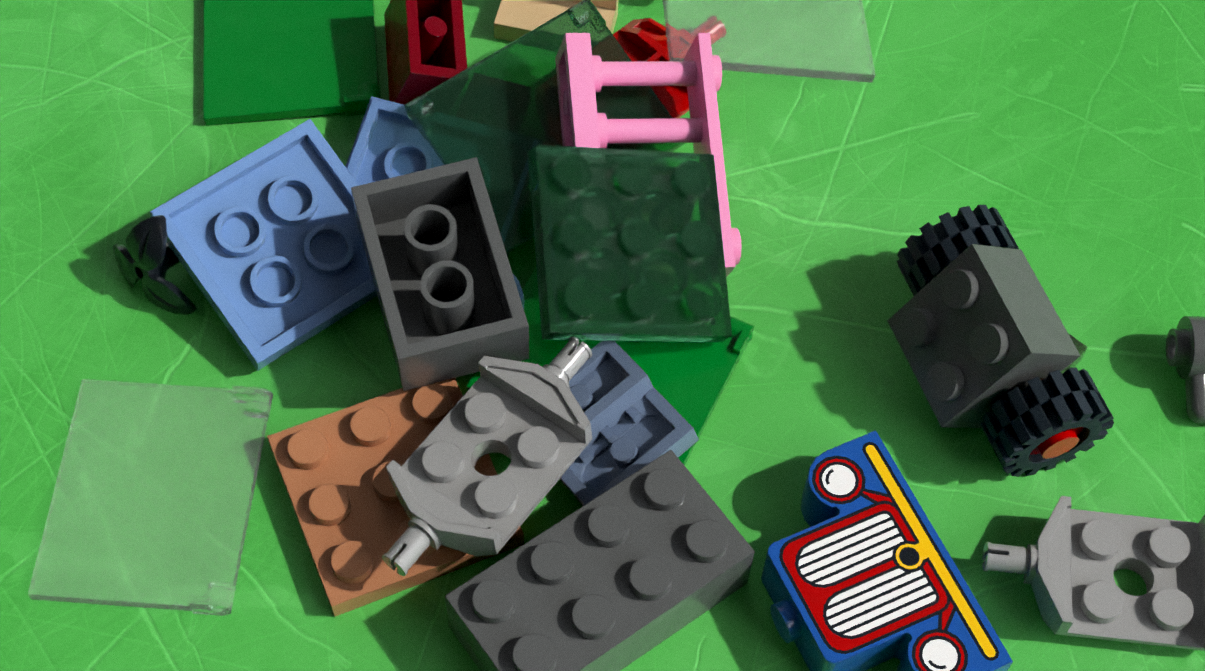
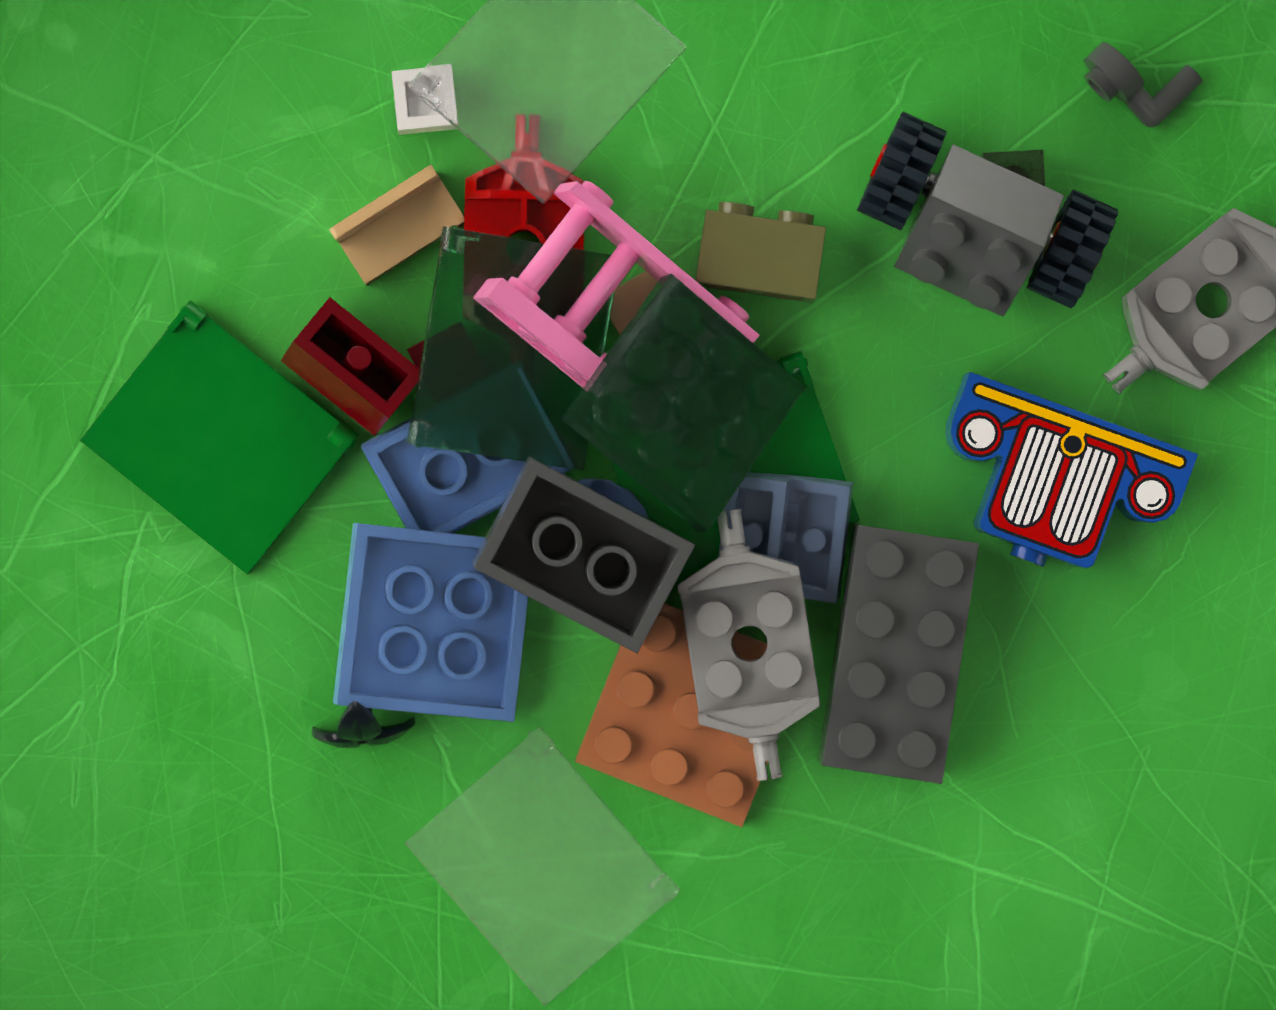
camera: 45 degrees left, 30 degrees up
(793, 233) = (760, 253): none -> olive brick

